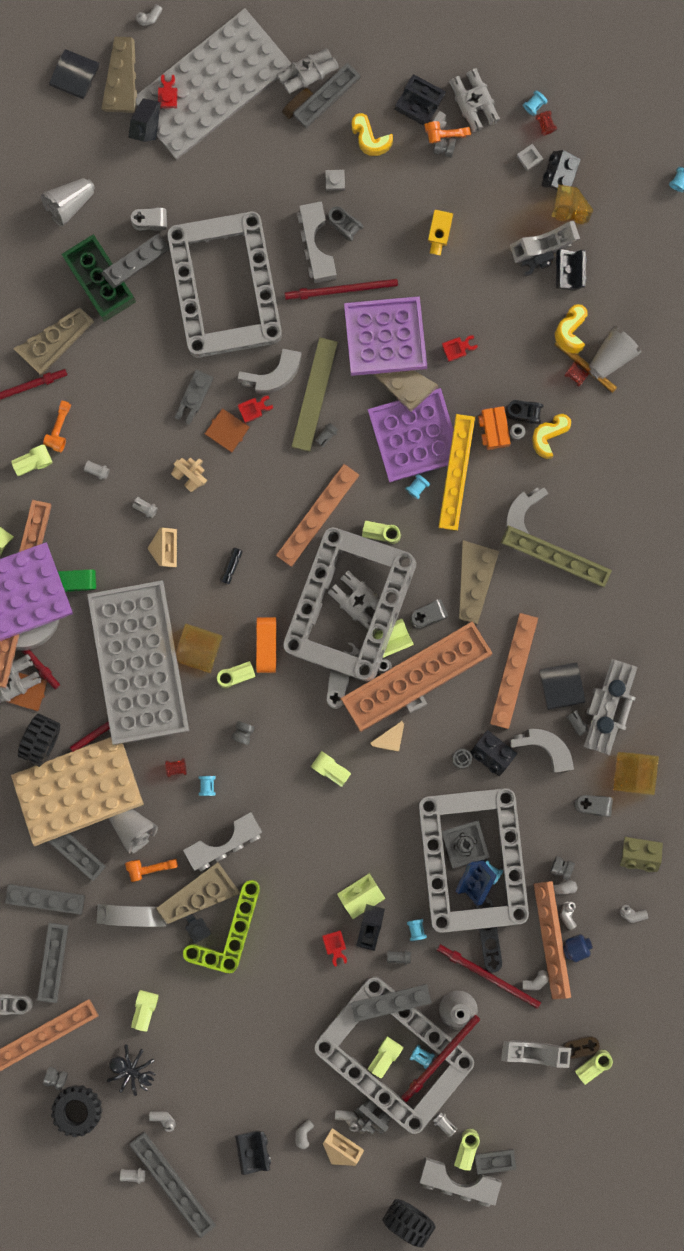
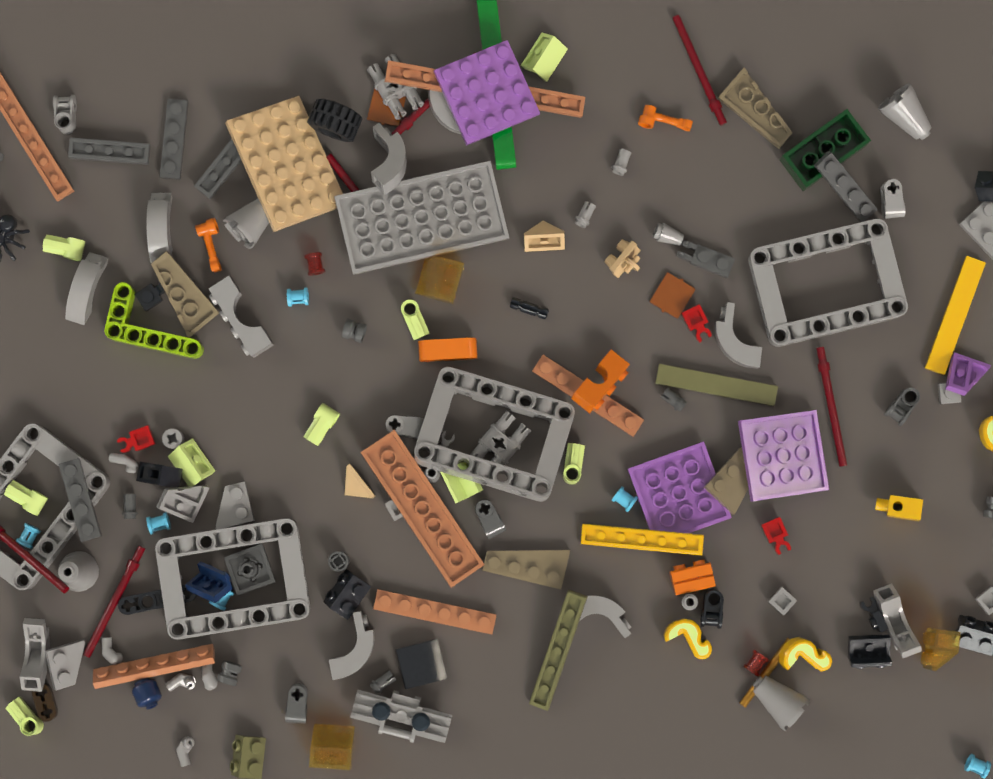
camera: 90 degrees right, 0 degrees up
(35, 459) = (628, 99): yellowish green piece -> none
(93, 688) = (392, 171): none -> light grey arch
(168, 432) = (667, 234): none -> light grey cone
(185, 991) = (83, 288): none -> light grey arch
(262, 169) = (955, 315): none -> yellow tile
(295, 490) = (590, 394): none -> orange arch
(318, 164) = (964, 373): none -> medium lavender wing
(322, 265) = (904, 372): light grey arch -> none
(337, 909) = (176, 440): none -> light grey wheel
(353, 961) = (124, 459): none -> light grey arm
(397, 904) = (183, 501): none -> light grey wing
(404, 856) = (235, 506): none -> light grey wing
(520, 346) = (782, 601): none -> light grey plate
(545, 1025) = (64, 663): none -> light grey wing

